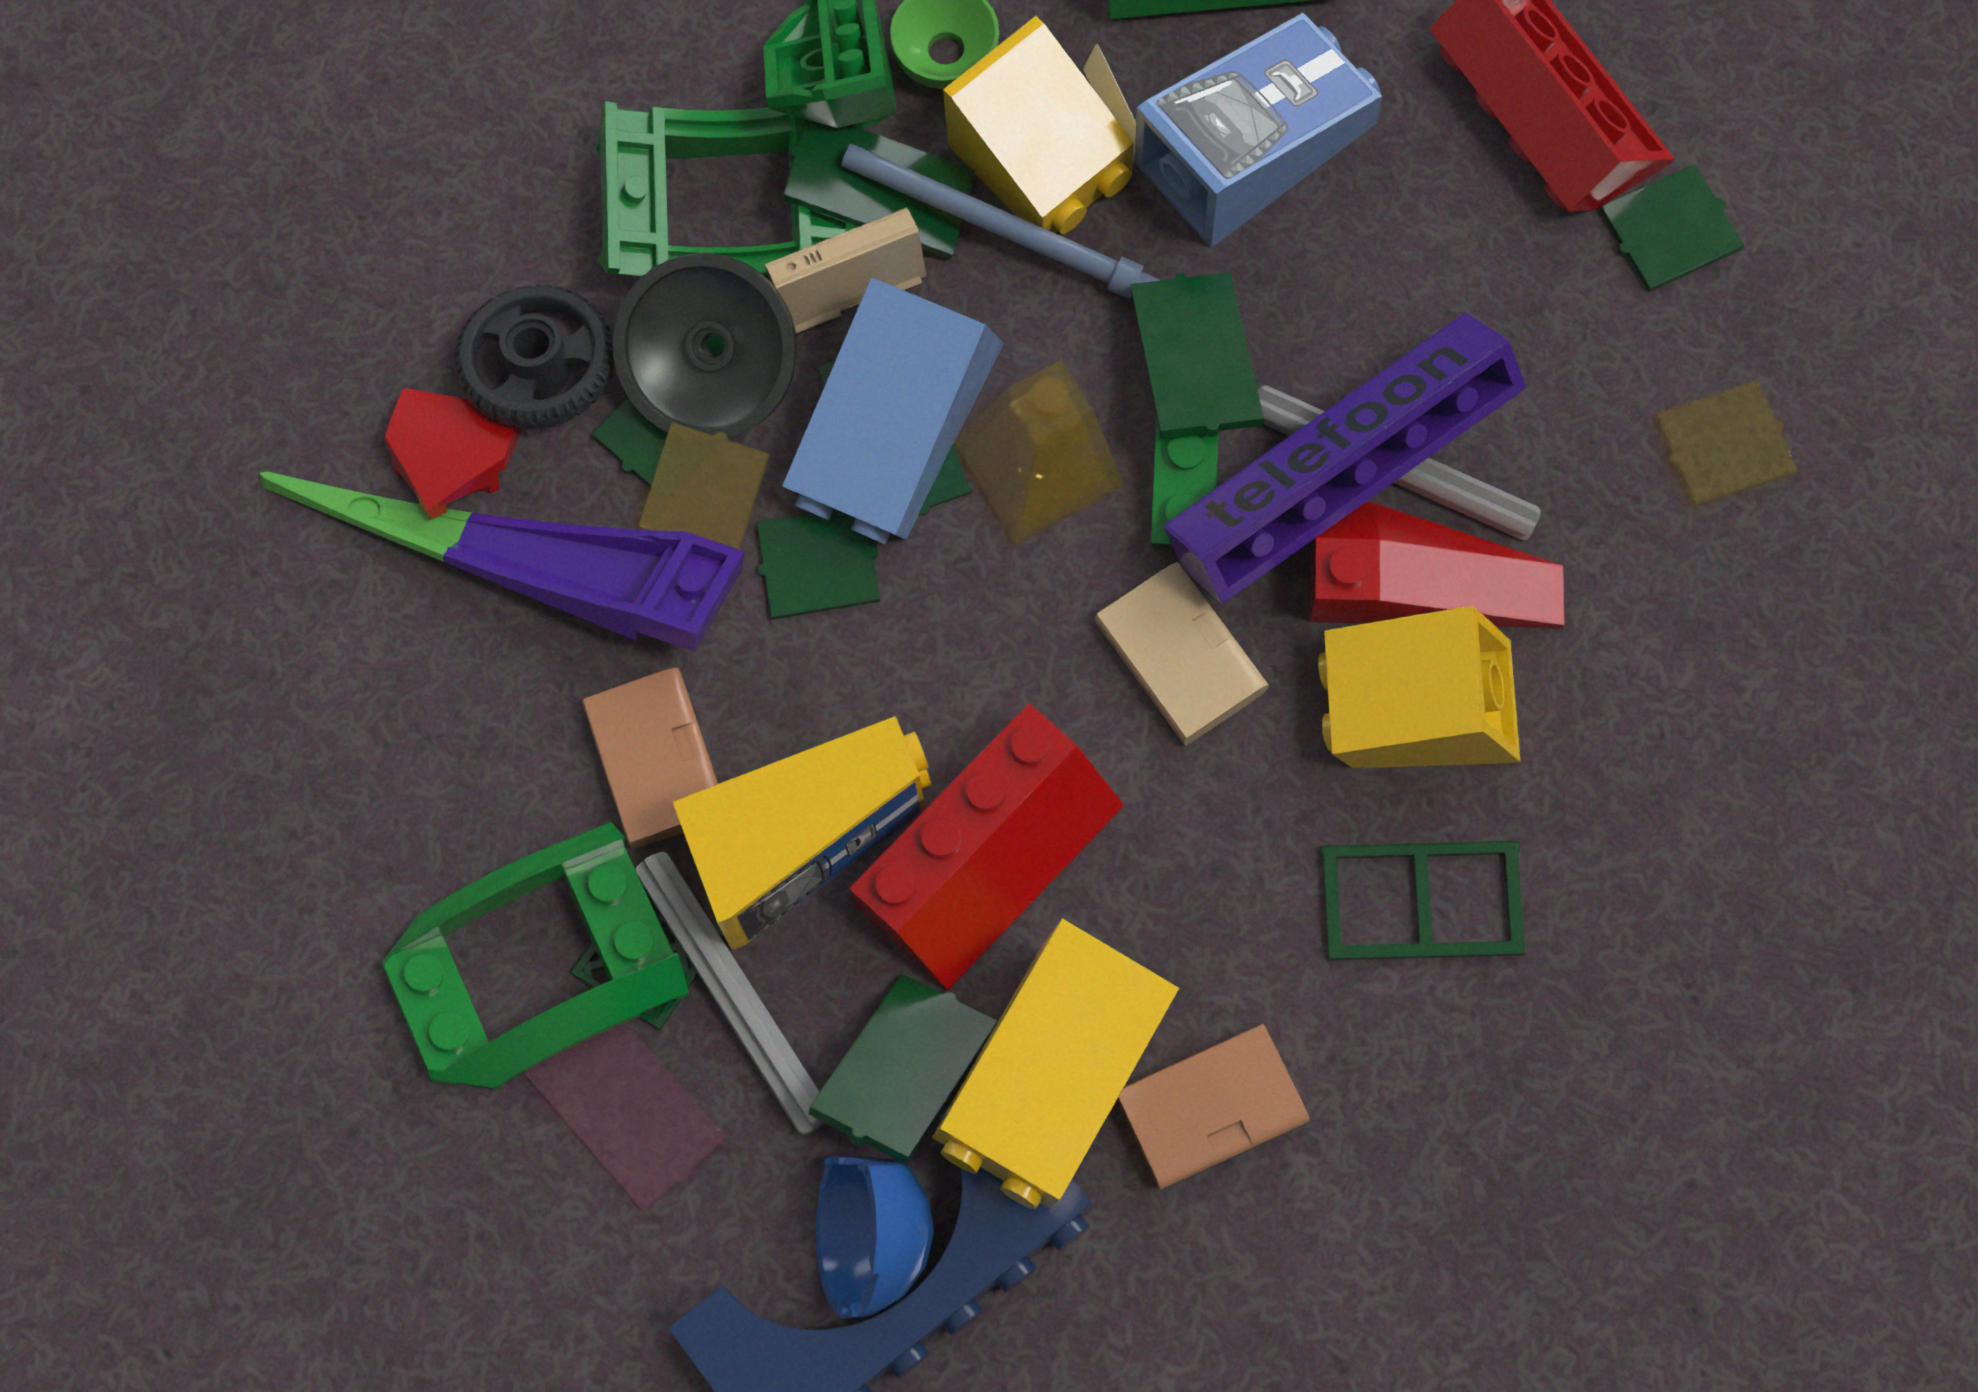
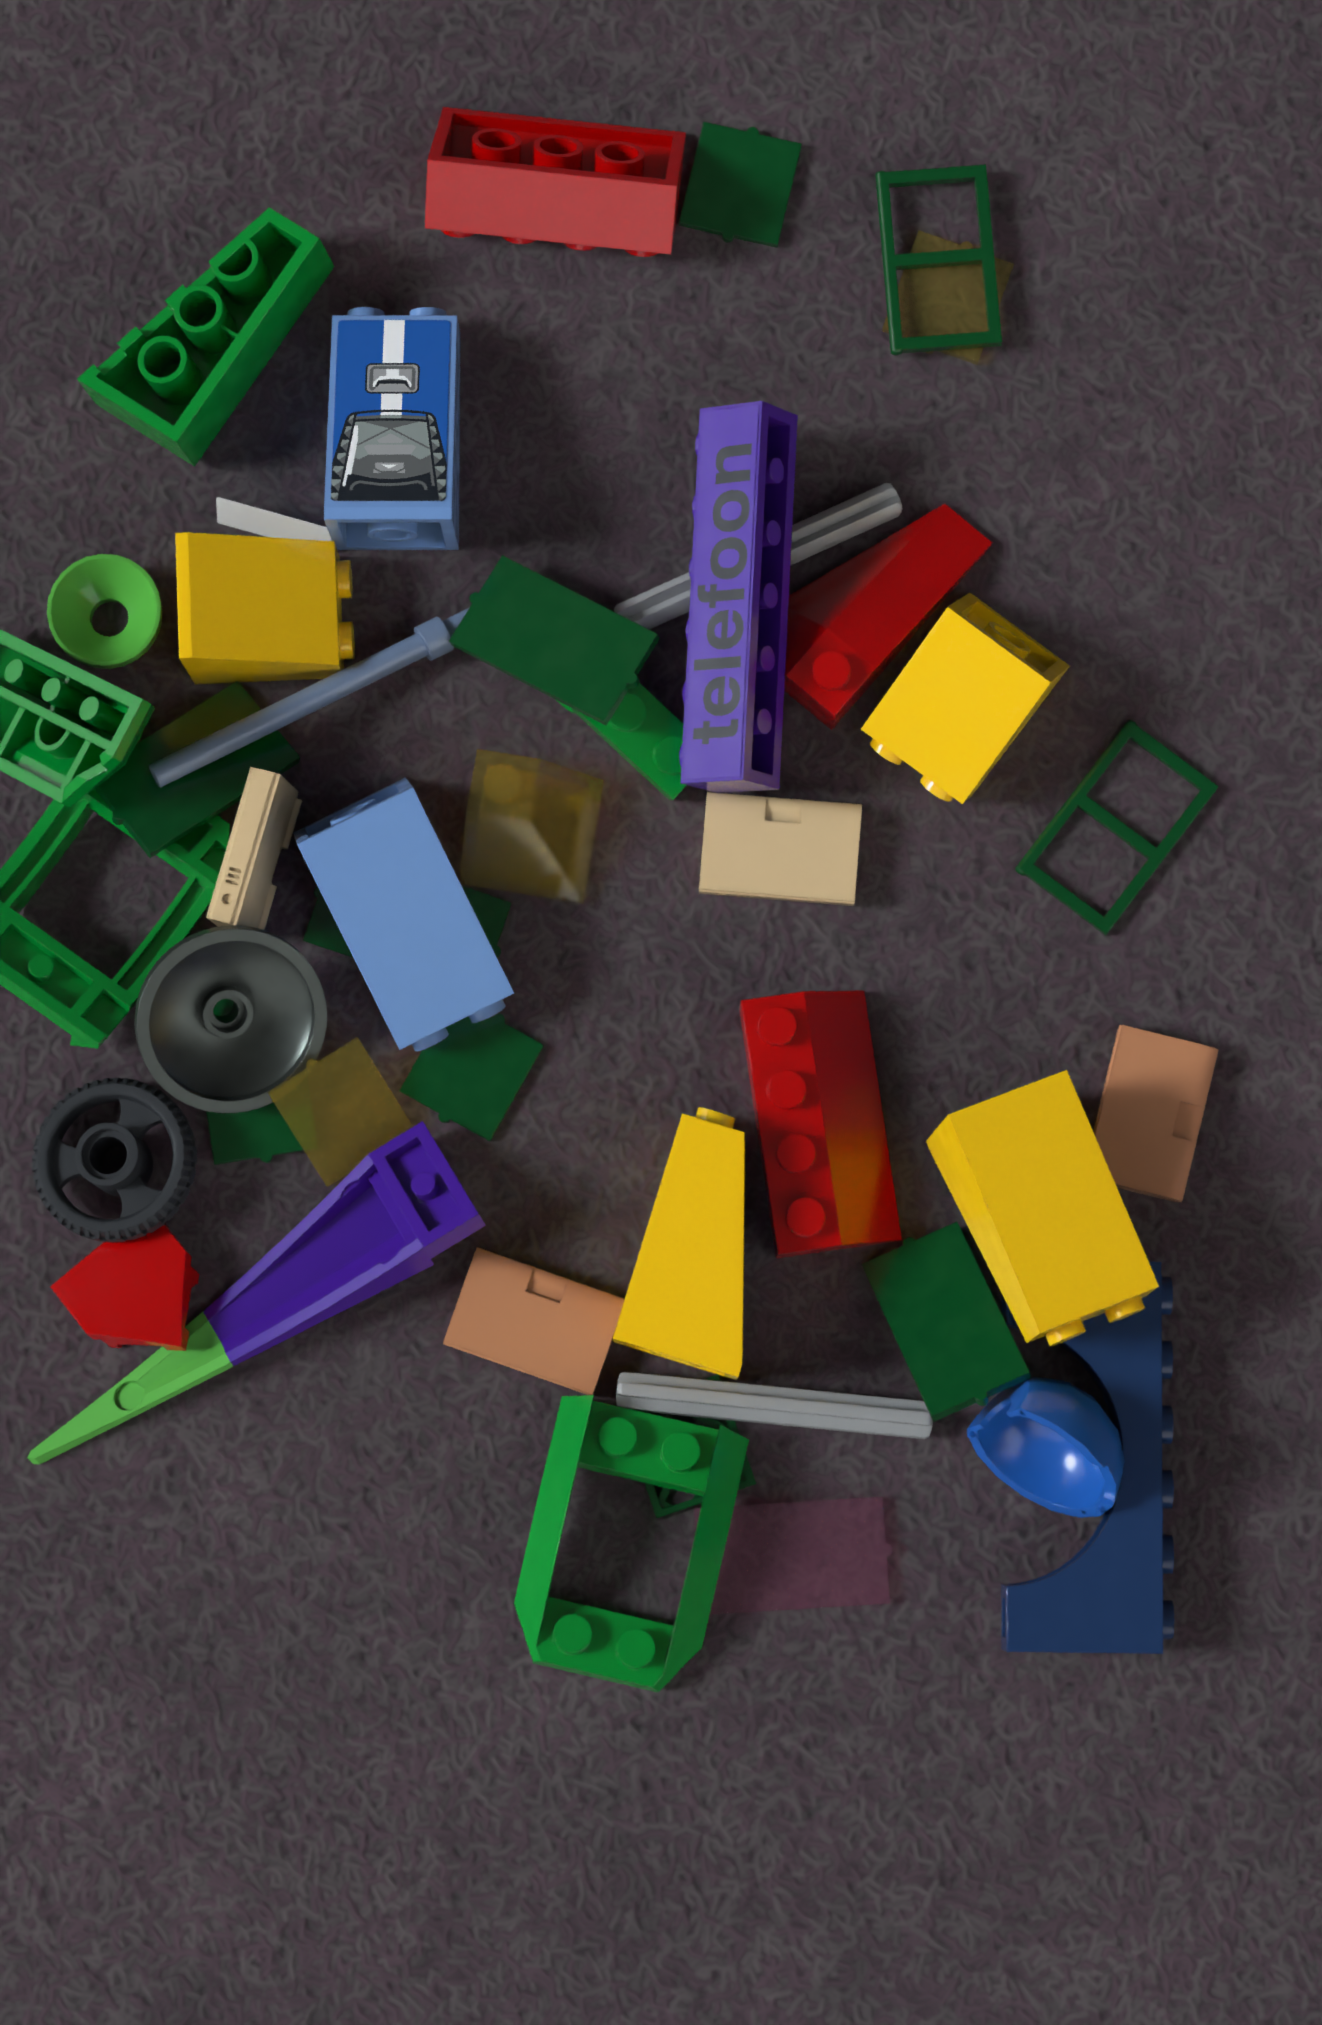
camera: 55 degrees left, 10 degrees up
(1780, 439) = (982, 255): none -> dark green window

